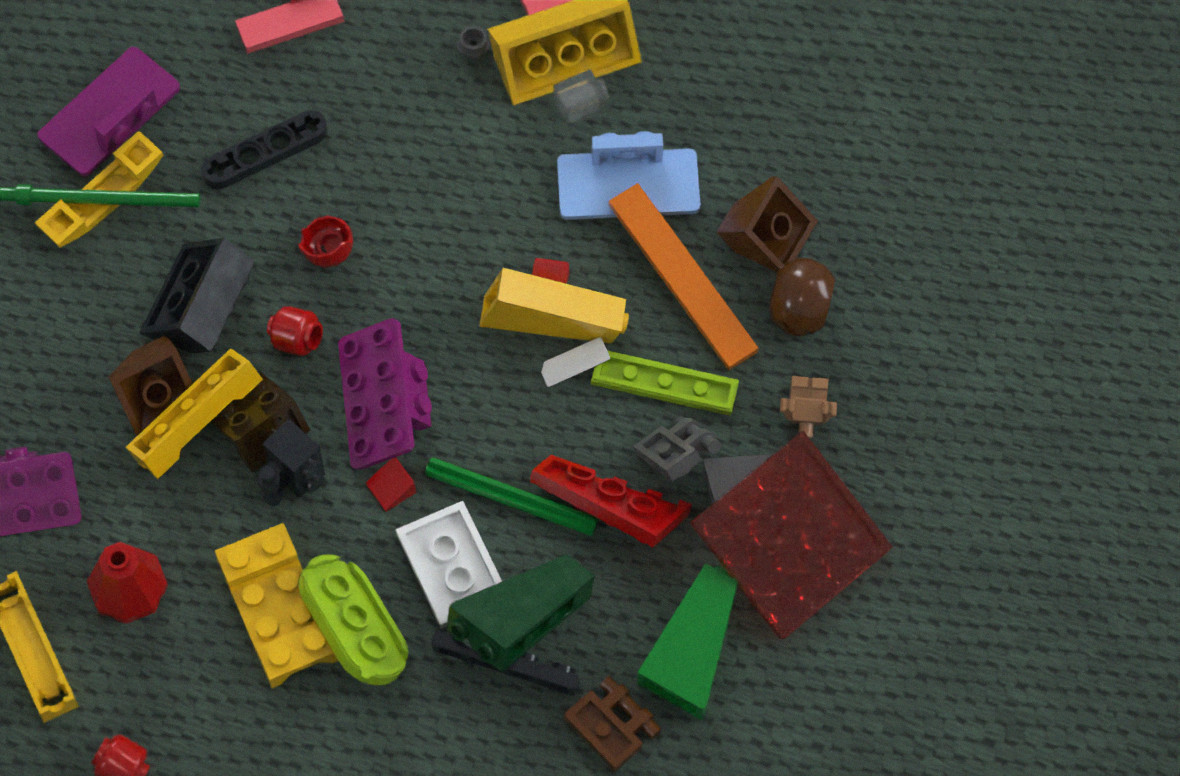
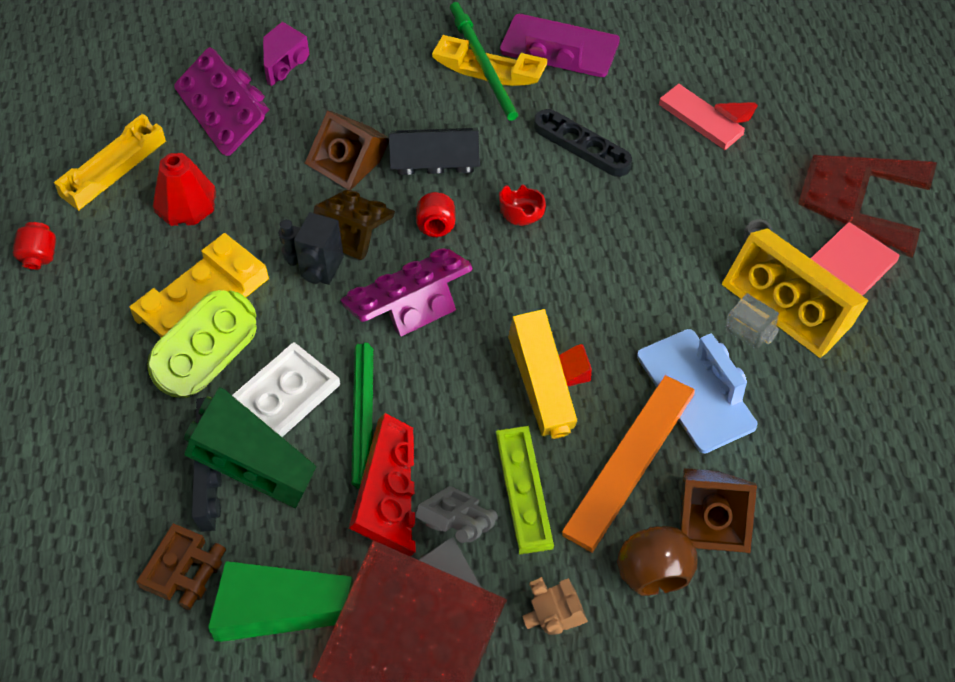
camera: 70 degrees right, 10 degrees down
(164, 438) = (366, 185): yellow piece -> none
(391, 484) = (337, 329): red slope -> none
(574, 361) = (508, 413): white sticker -> none

